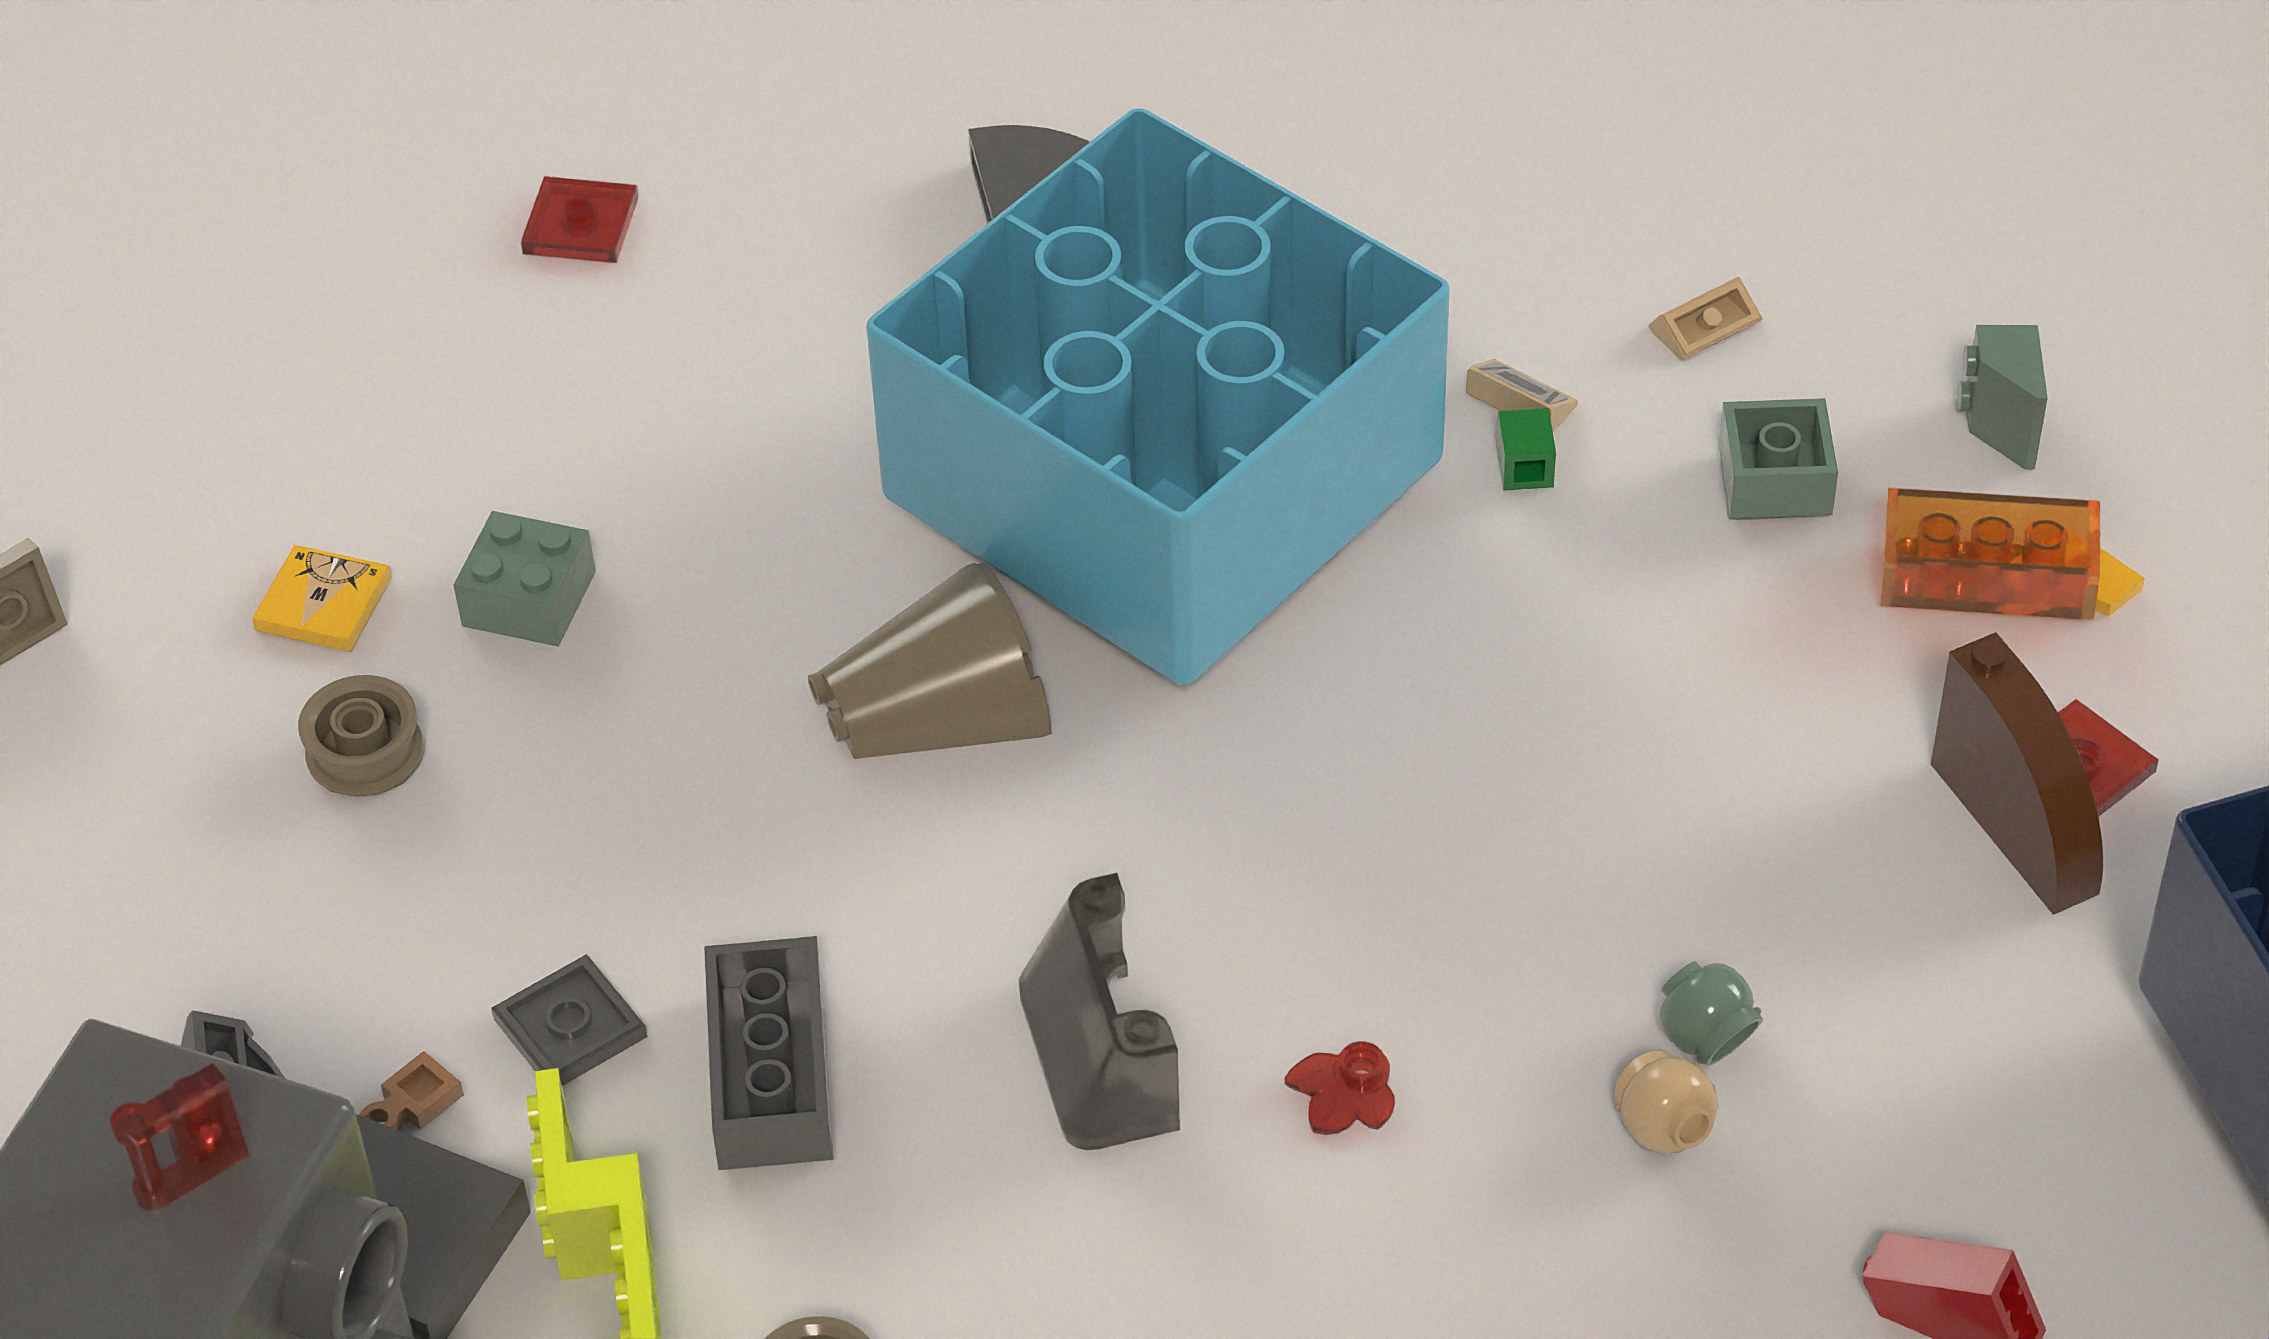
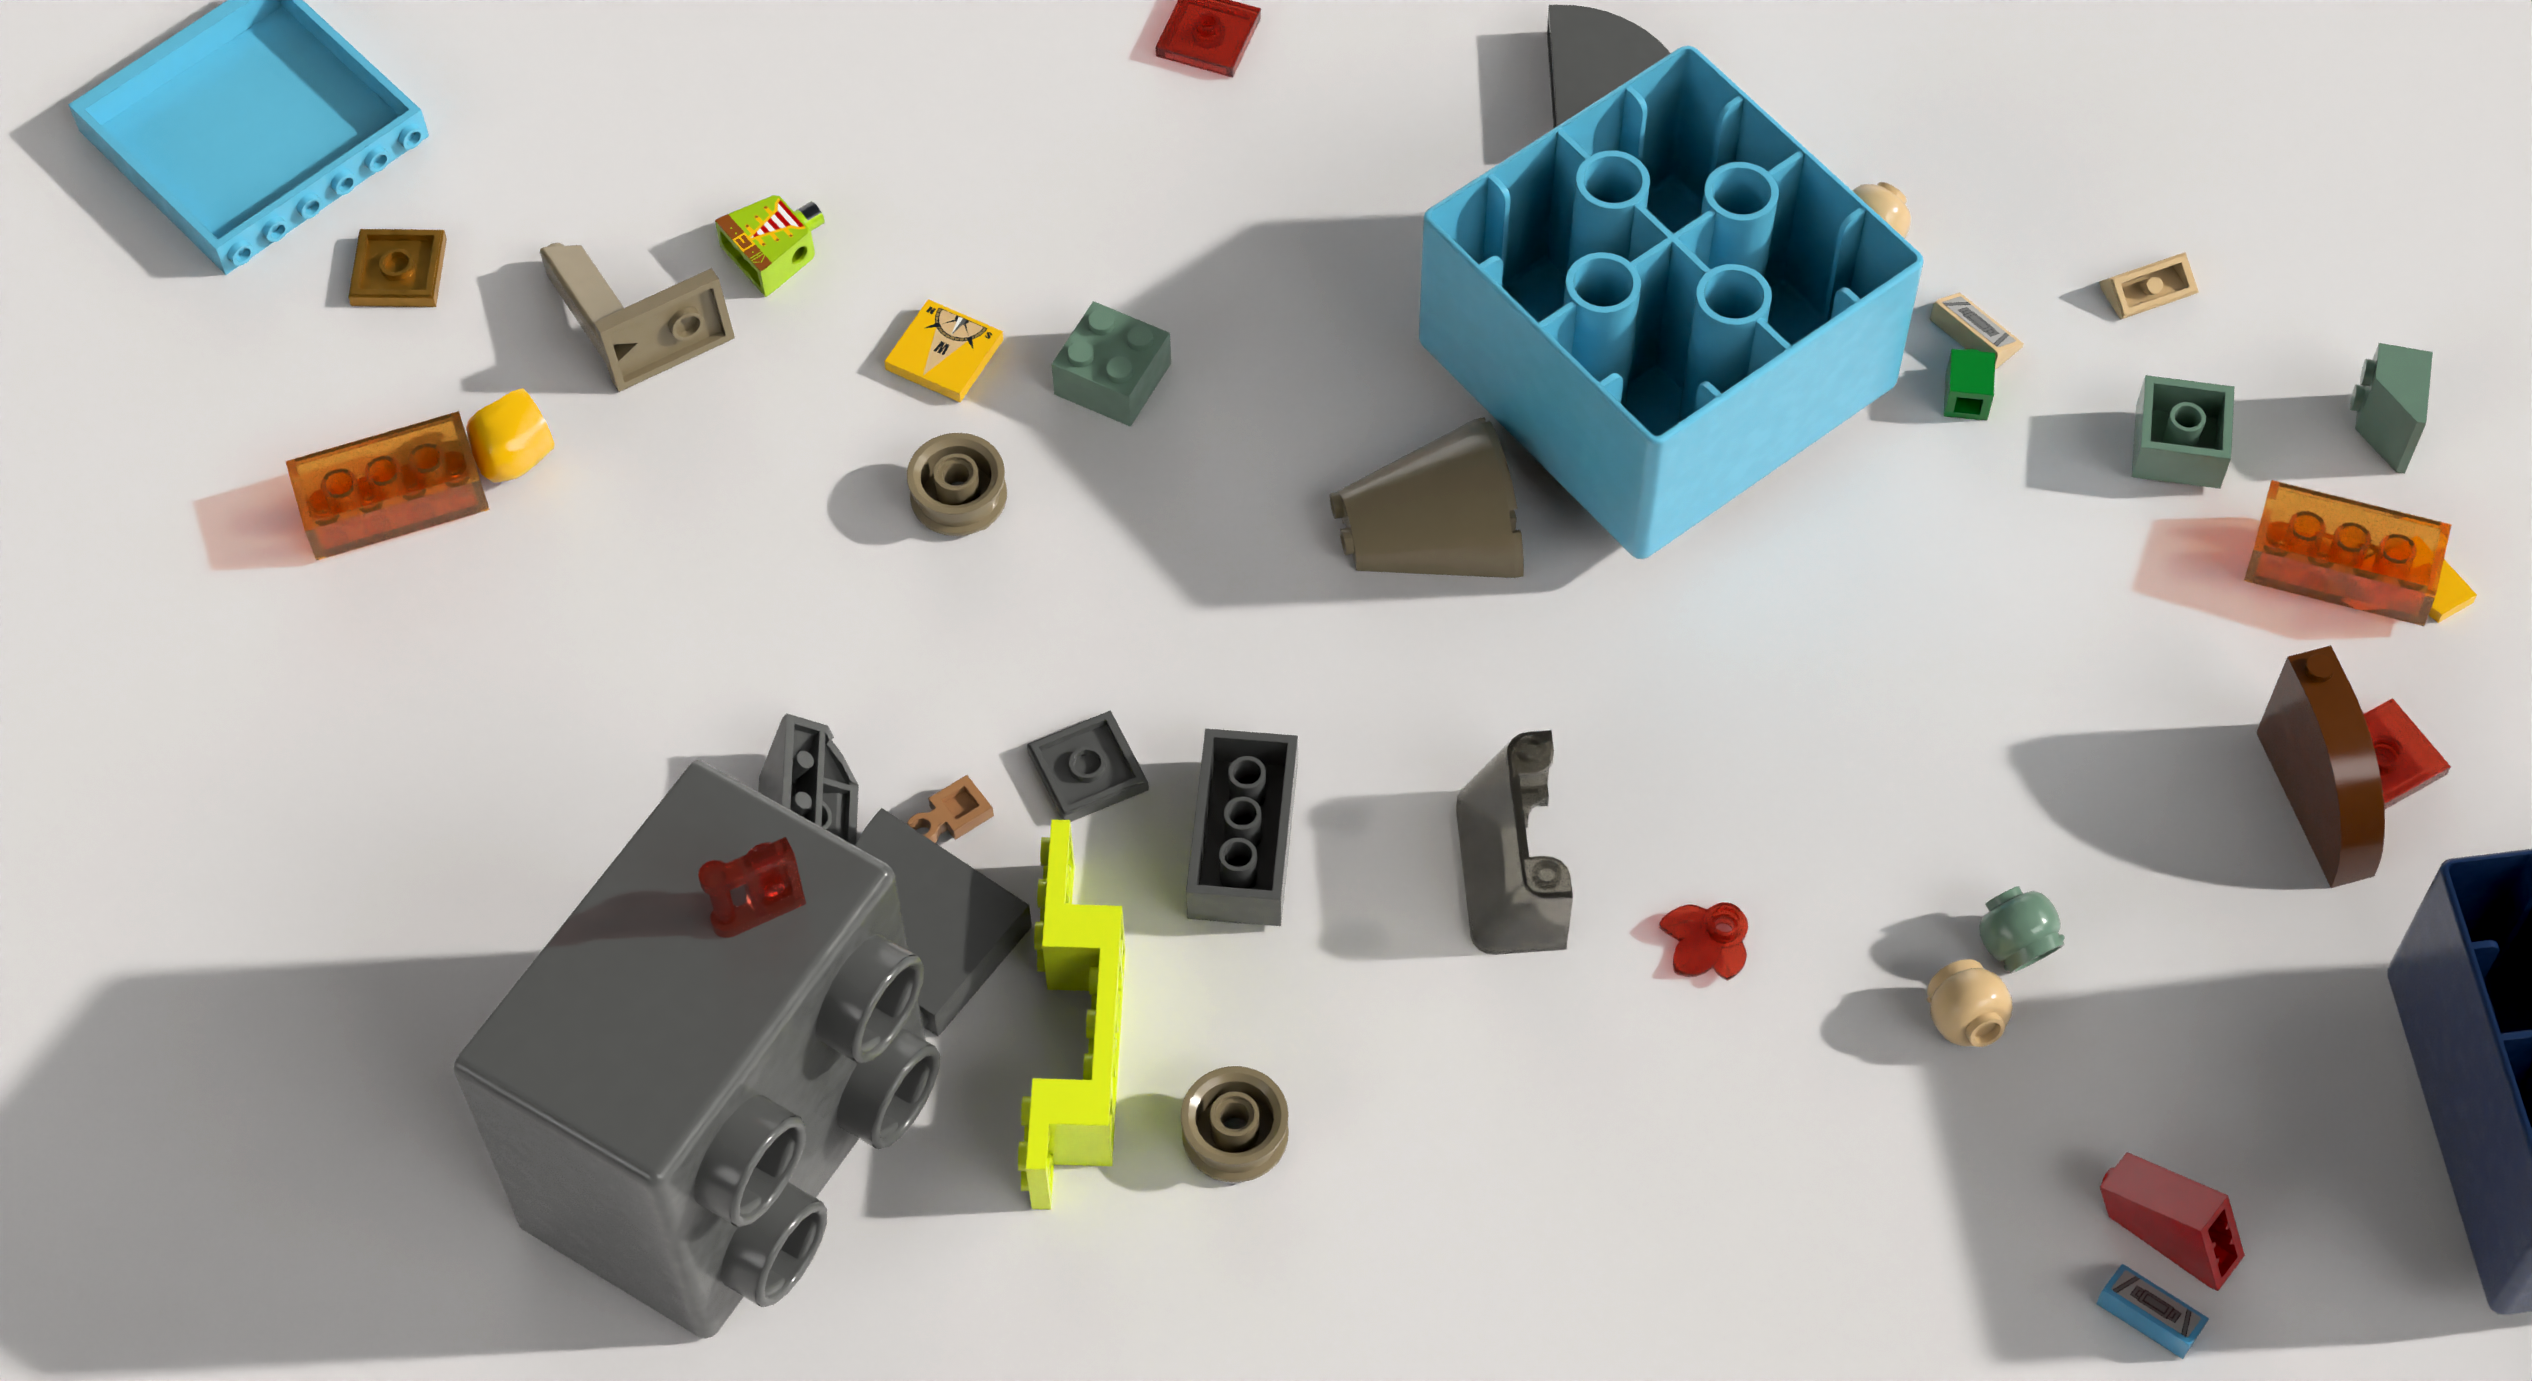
camera: 10 degrees right, 10 degrees up
(93, 510) = (769, 240): none -> lime torso

